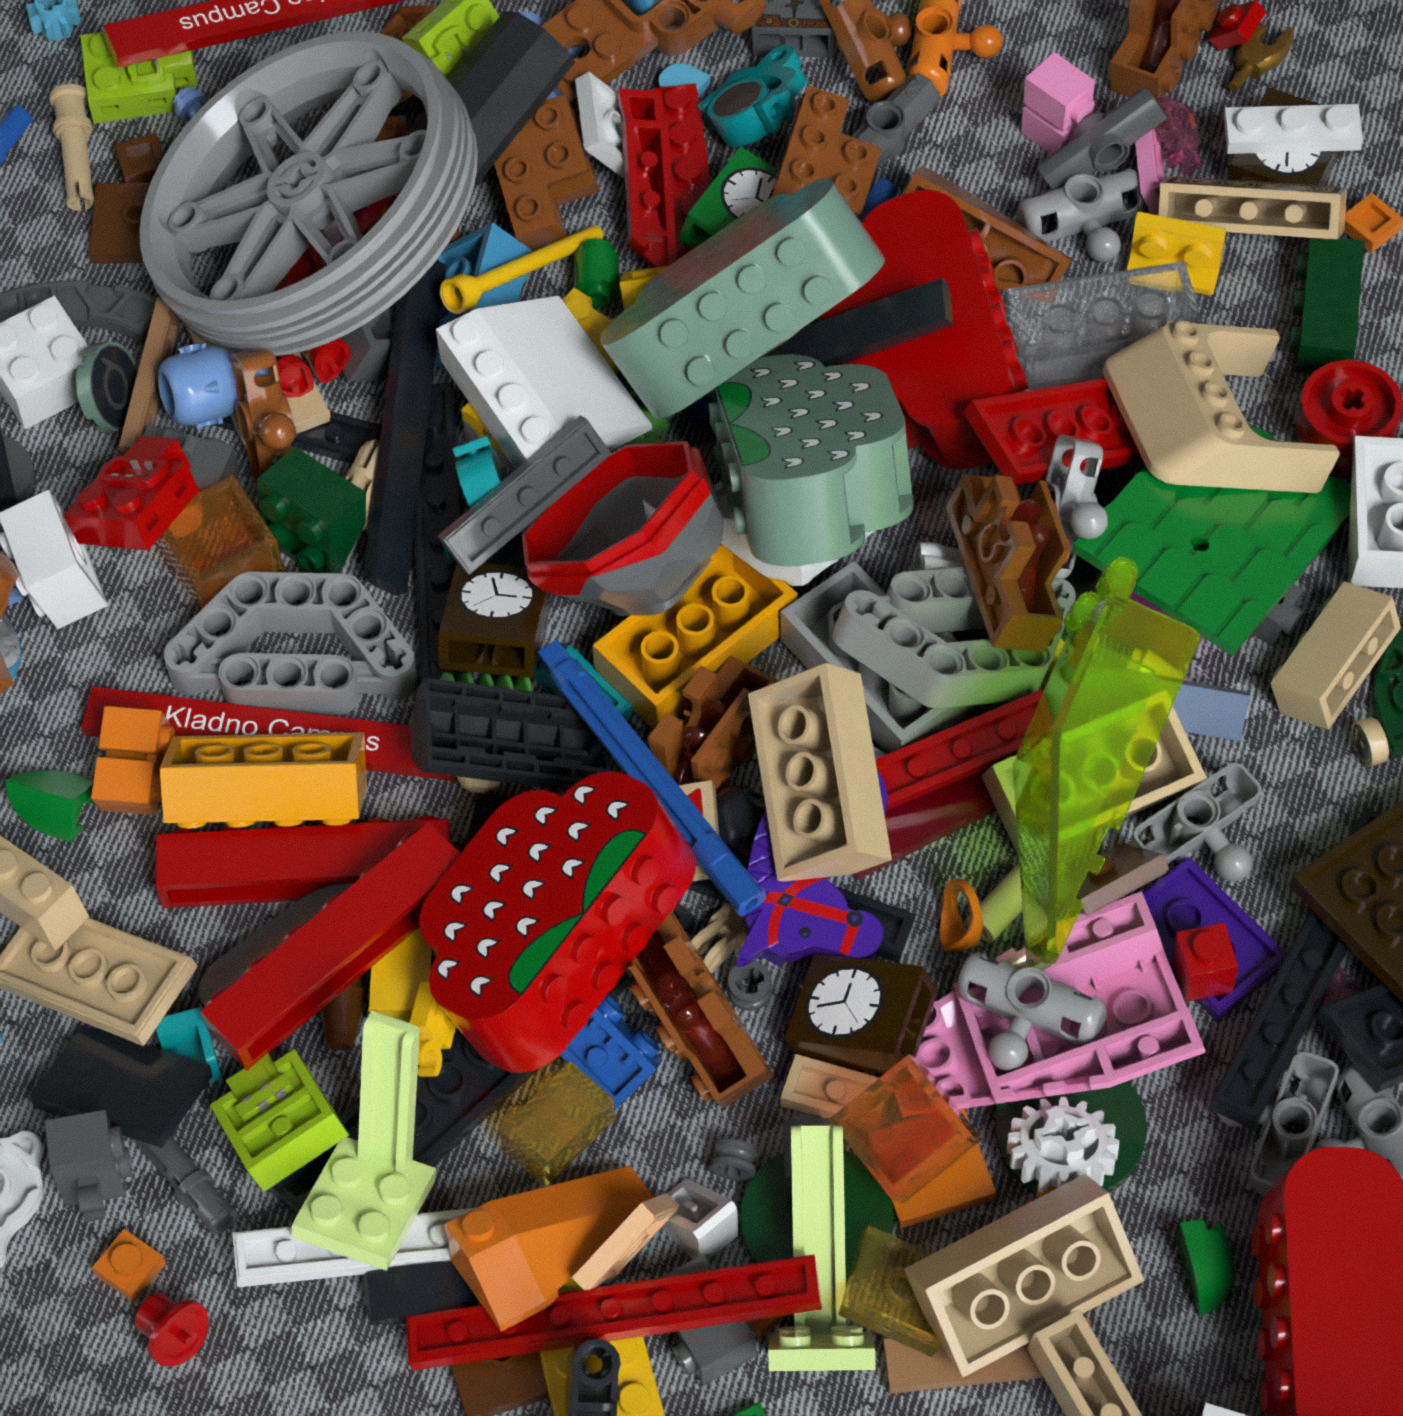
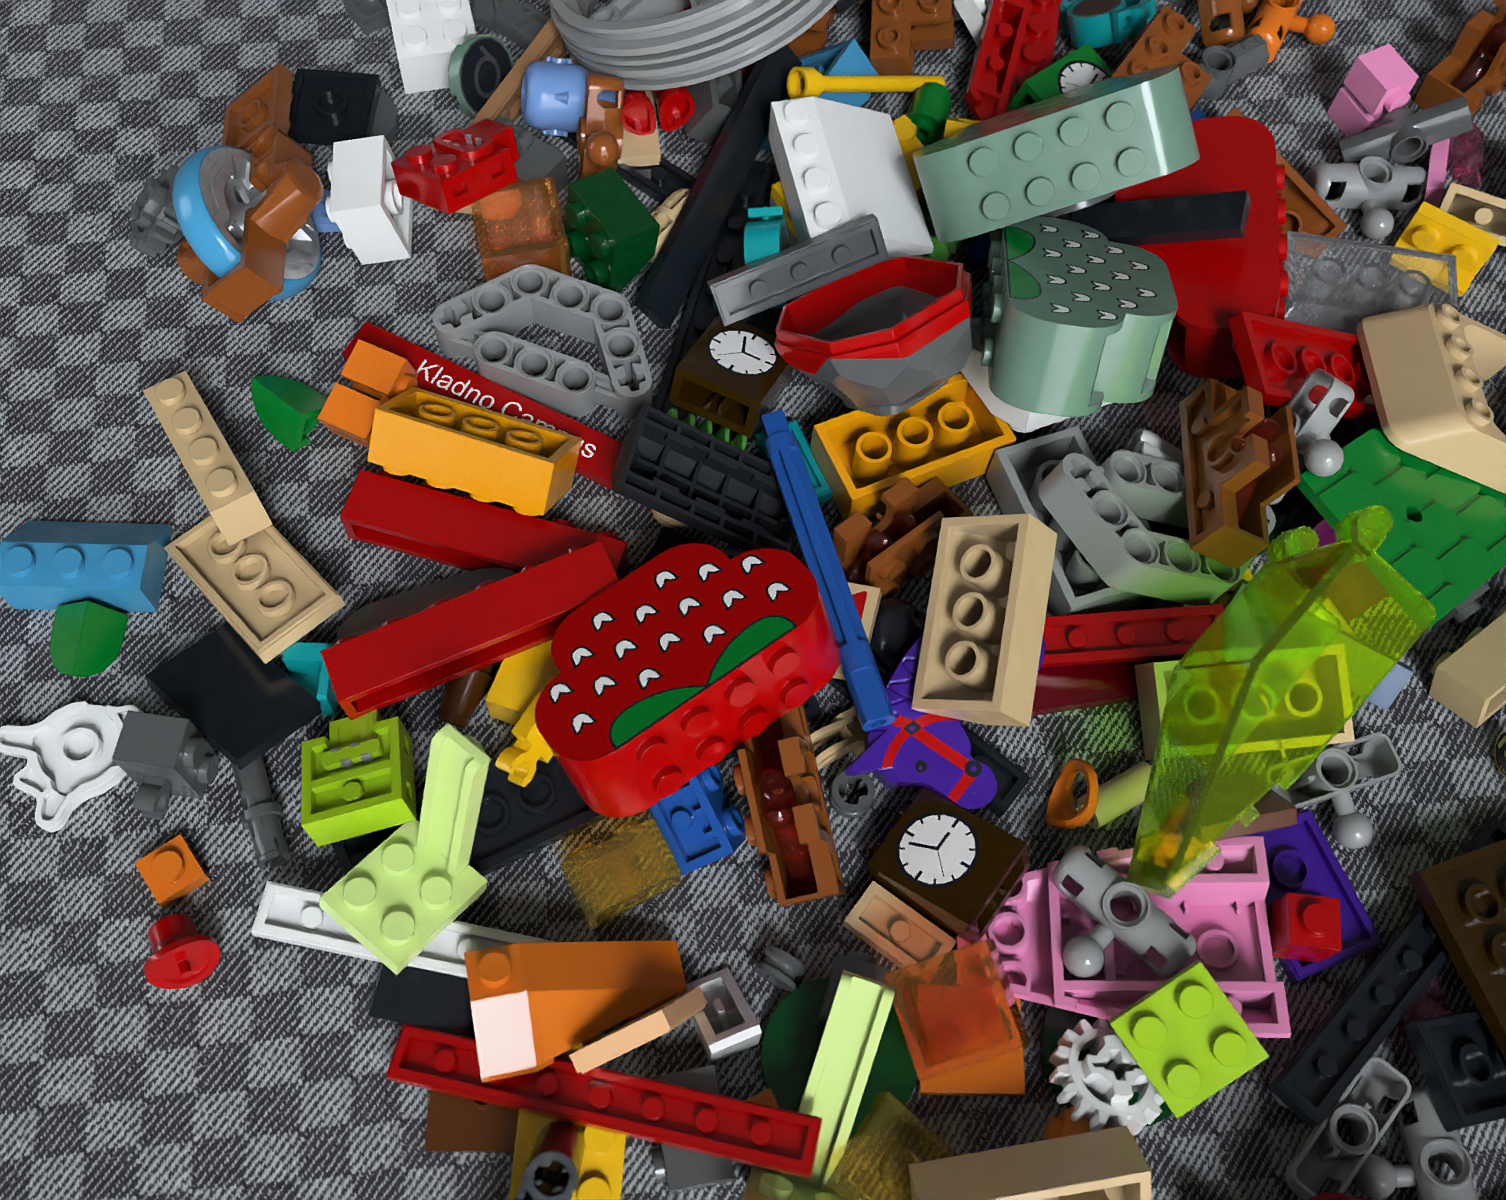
camera: 10 degrees right, 5 degrees up
(1115, 1081) = (1188, 1038): none -> lime plate

